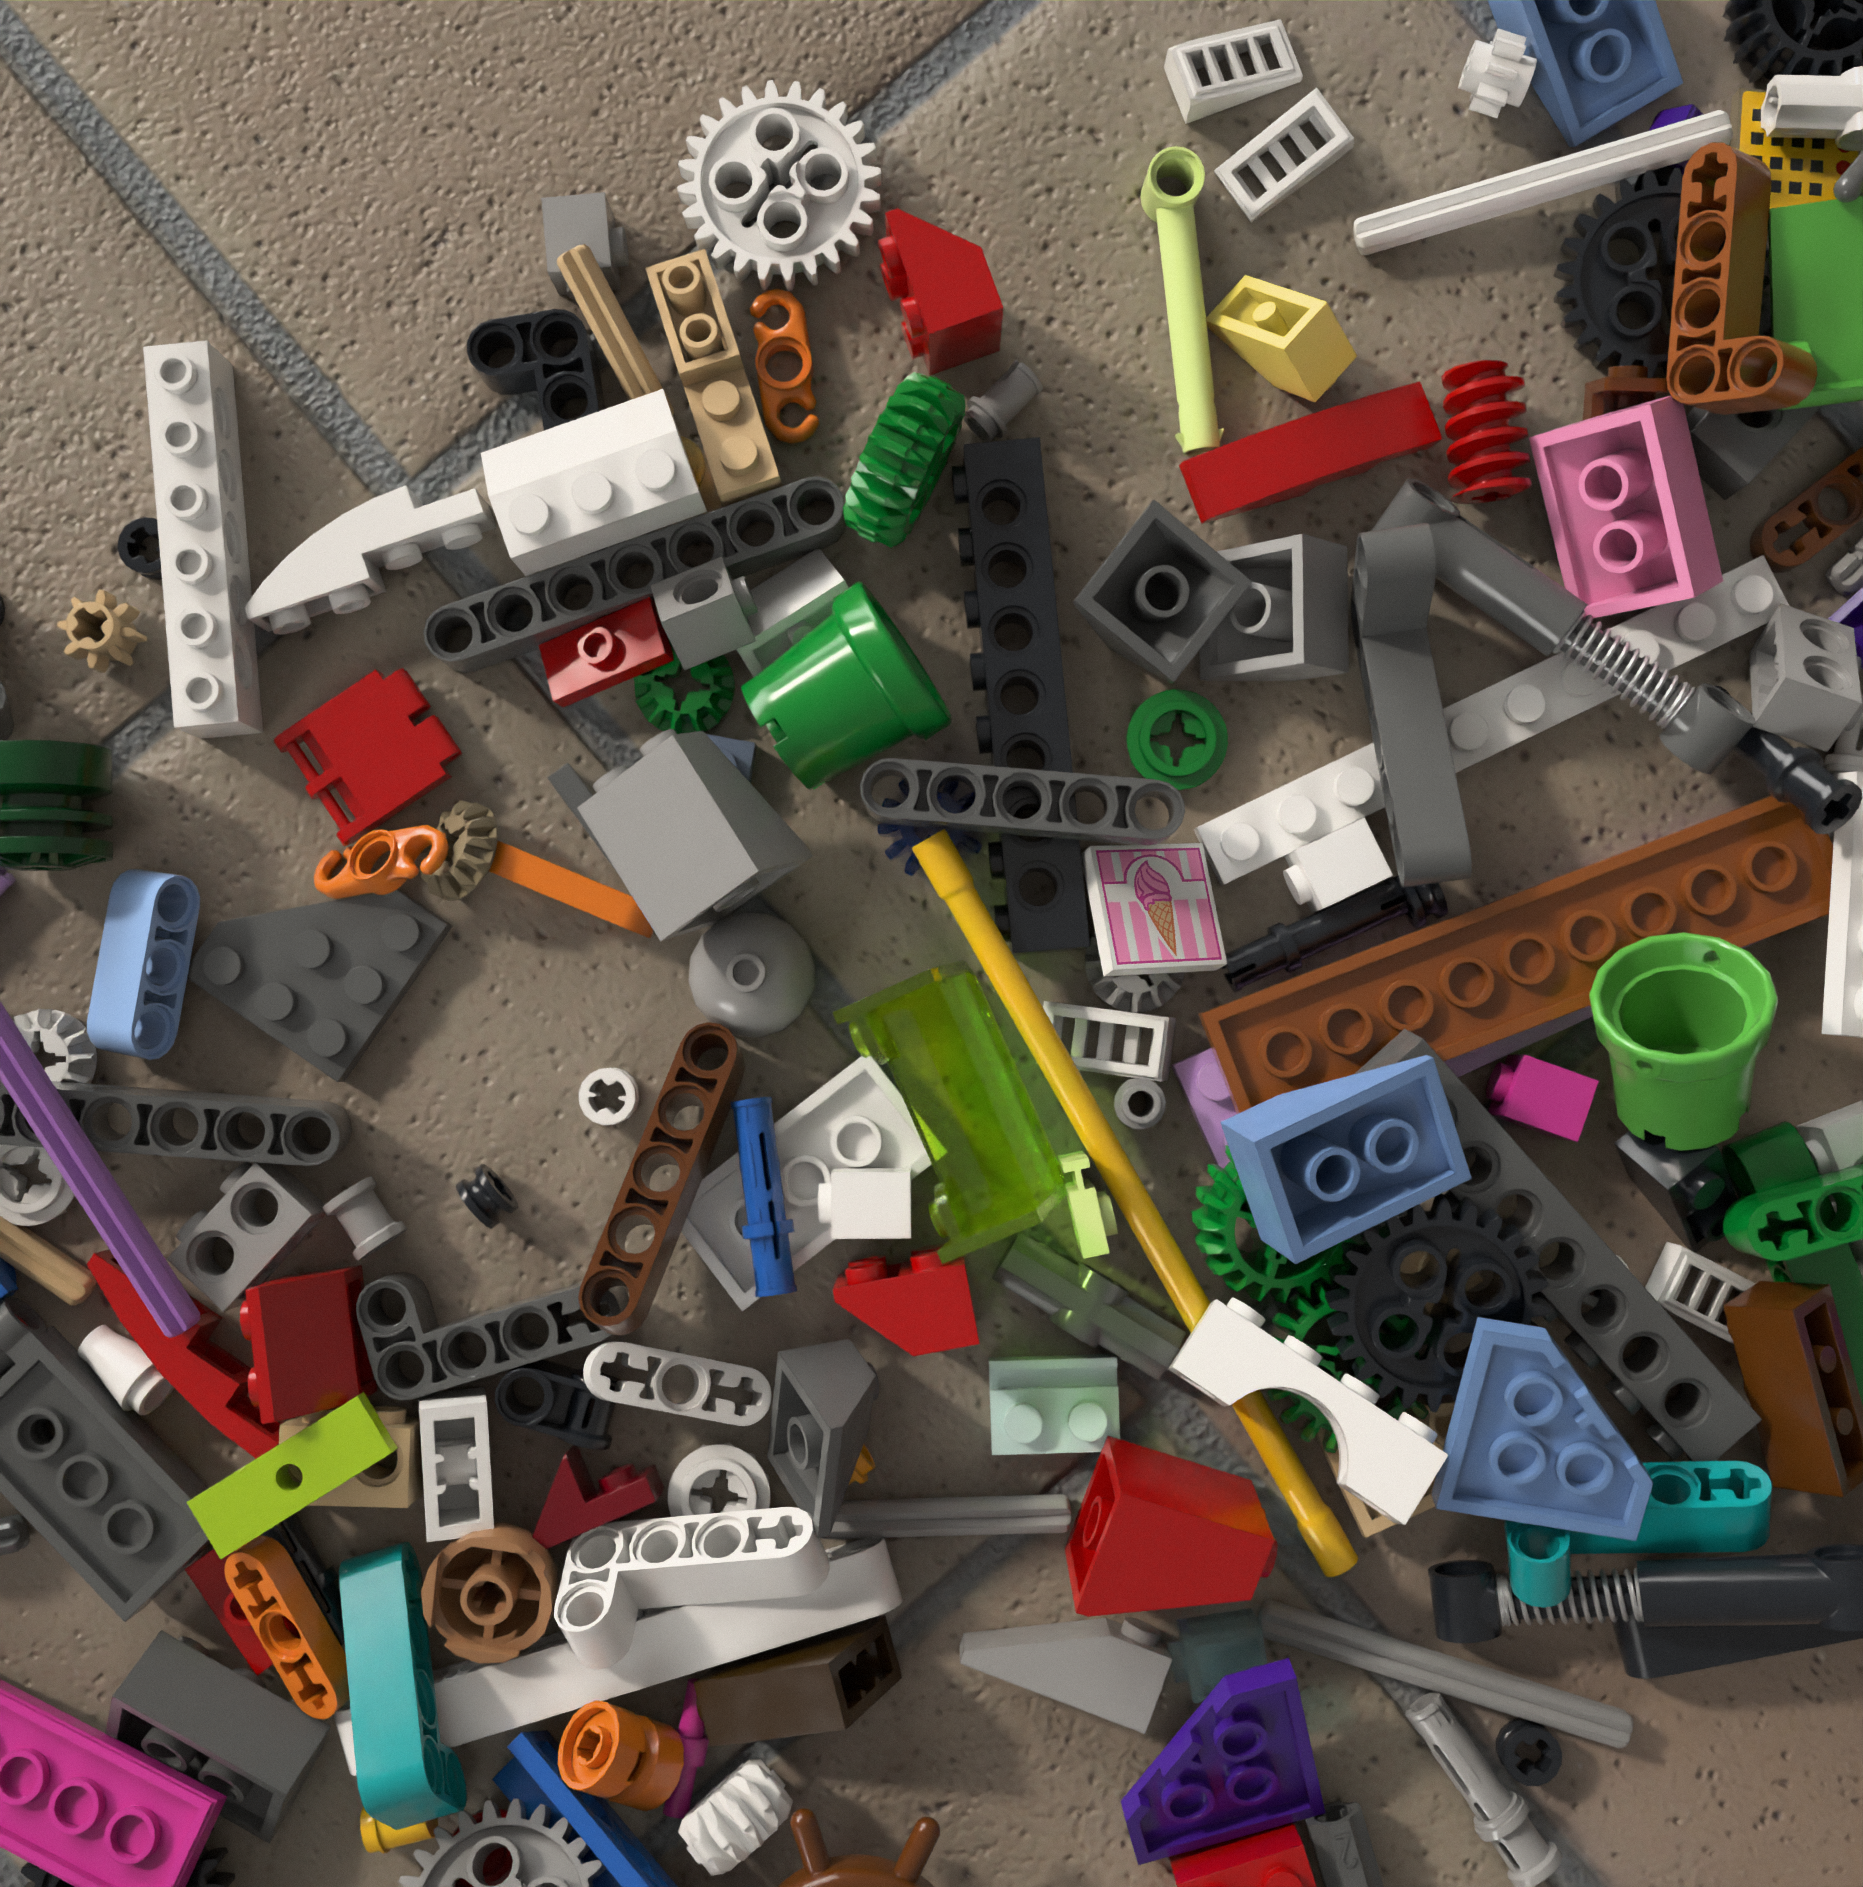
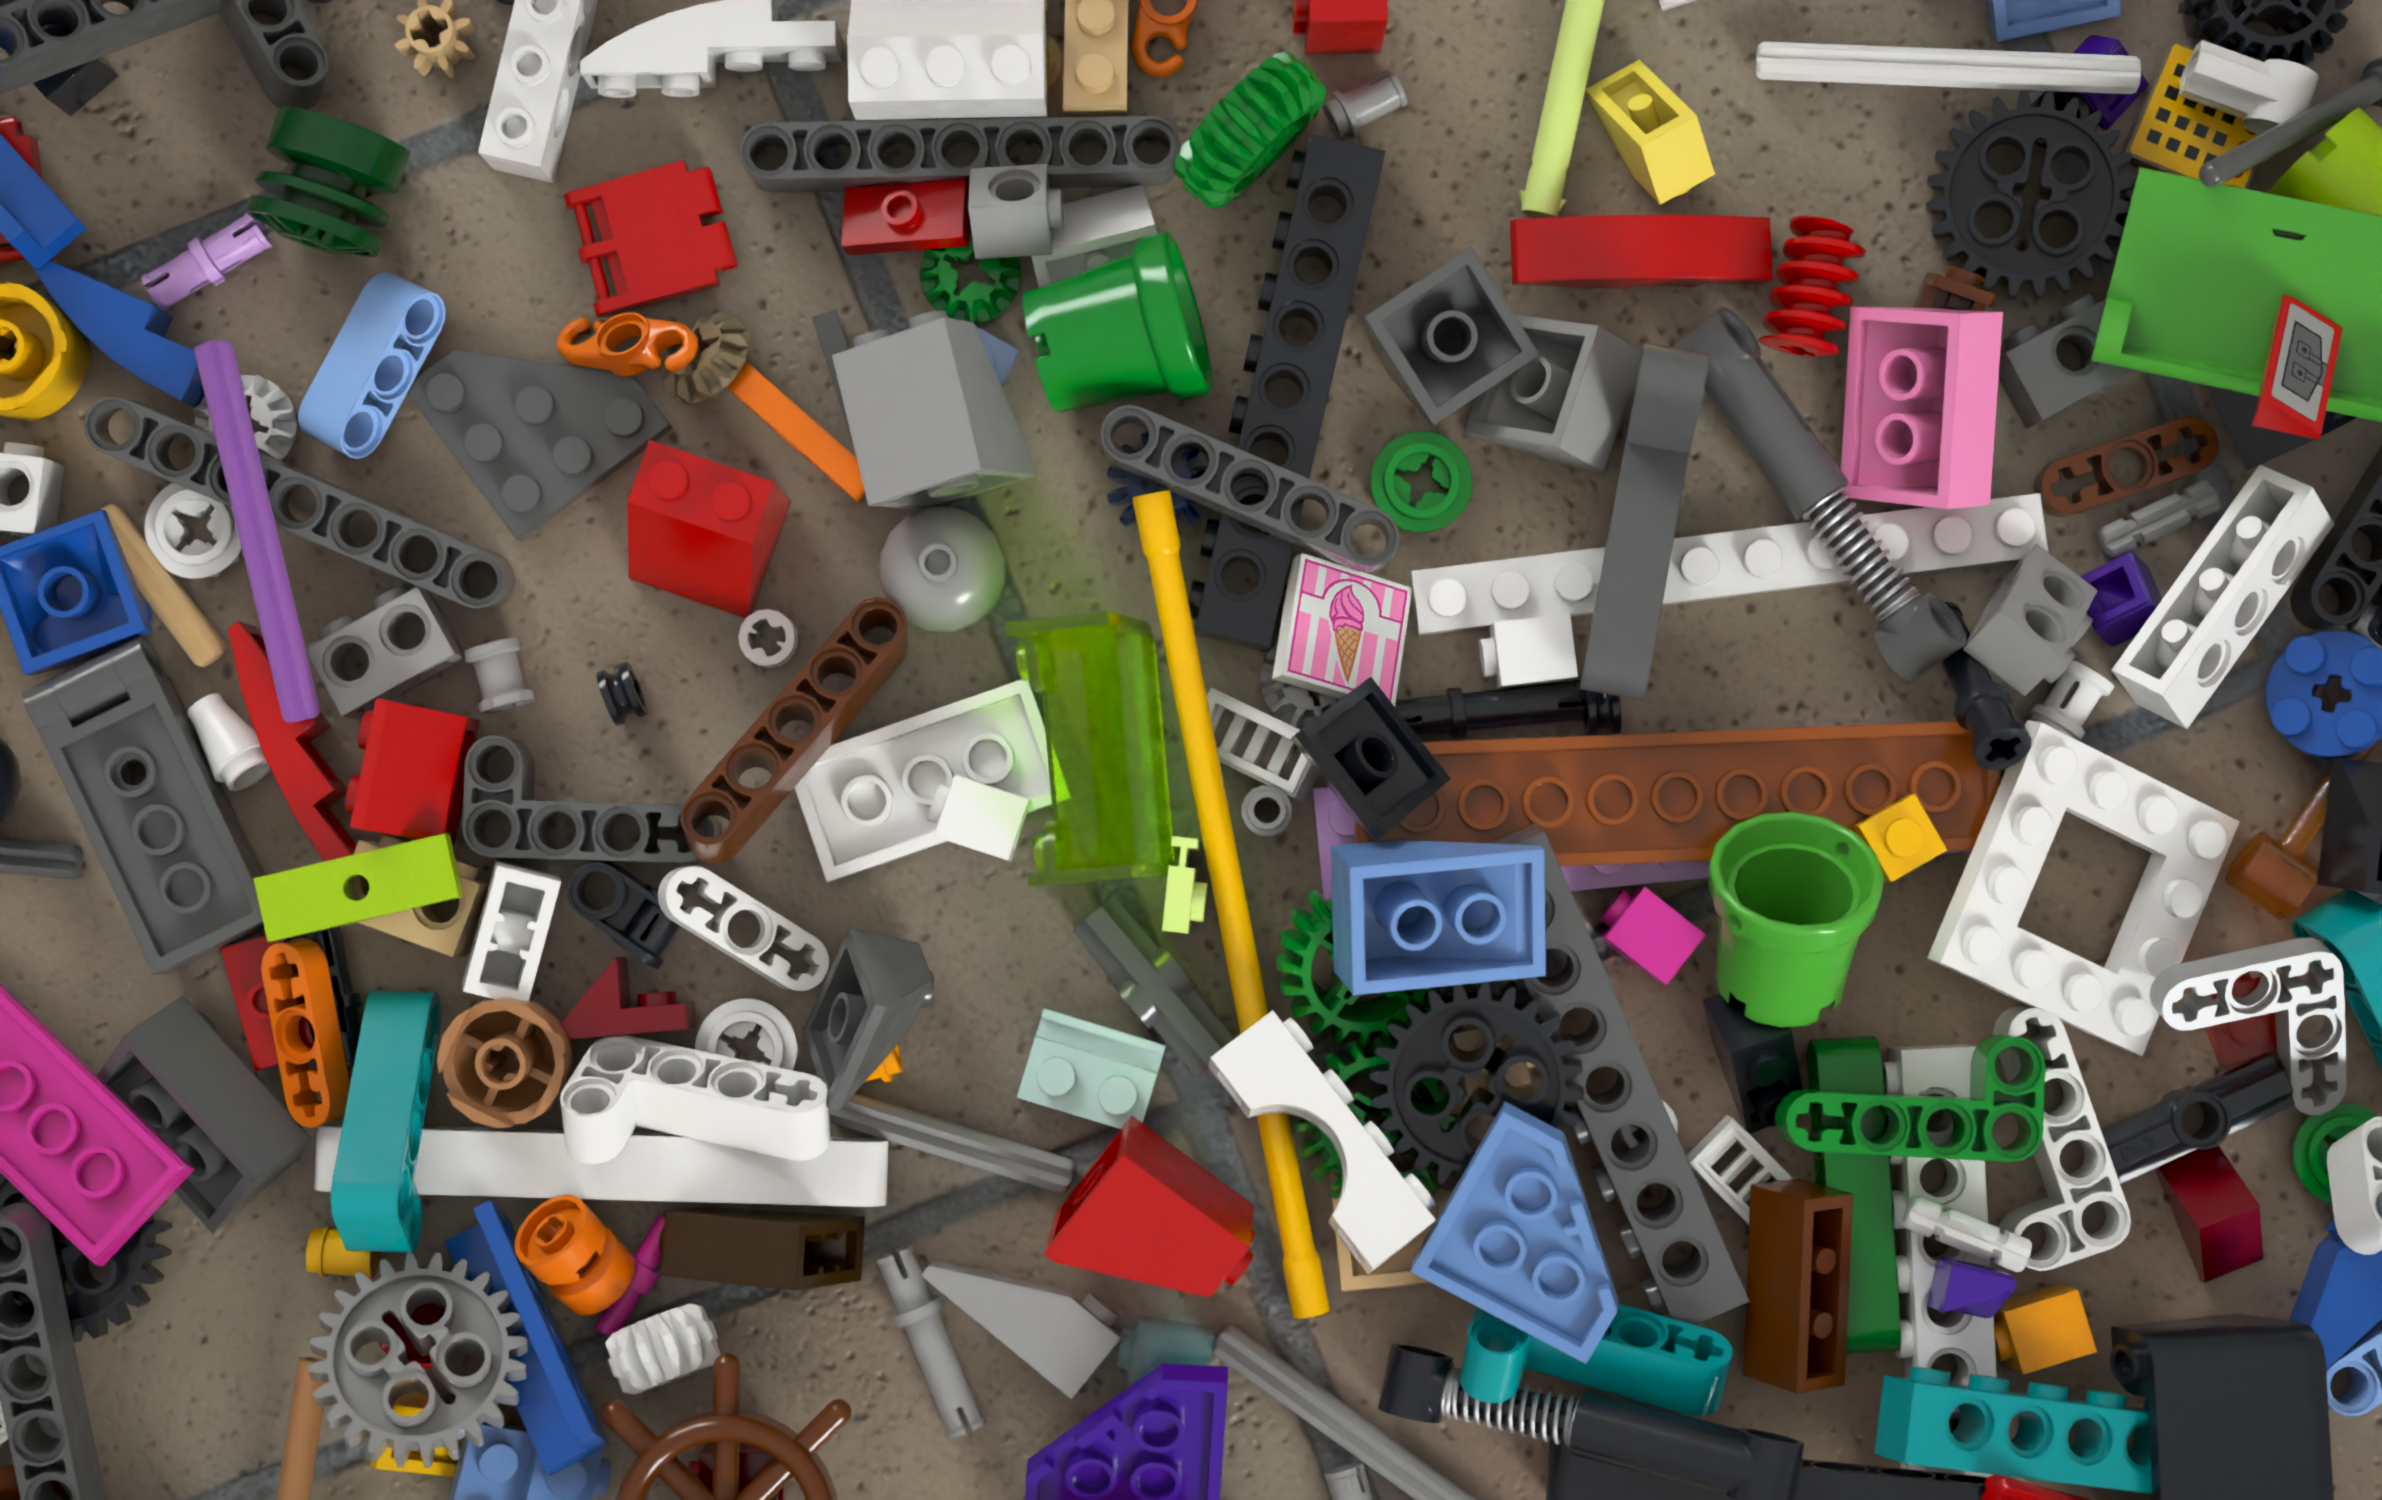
camera: 10 degrees right, 0 degrees up
(509, 1014) = (702, 529): none -> red slope
(763, 1197) = (883, 779): blue pin -> none
(913, 1302) = (992, 928): red slope -> none
(969, 1695) = (930, 1340): none -> light grey pin
(1227, 1024) = (1371, 759): none -> black slope
(1728, 199) = (2067, 229): dark orange beam -> none
(1758, 923) = (1901, 837): none -> yellow plate

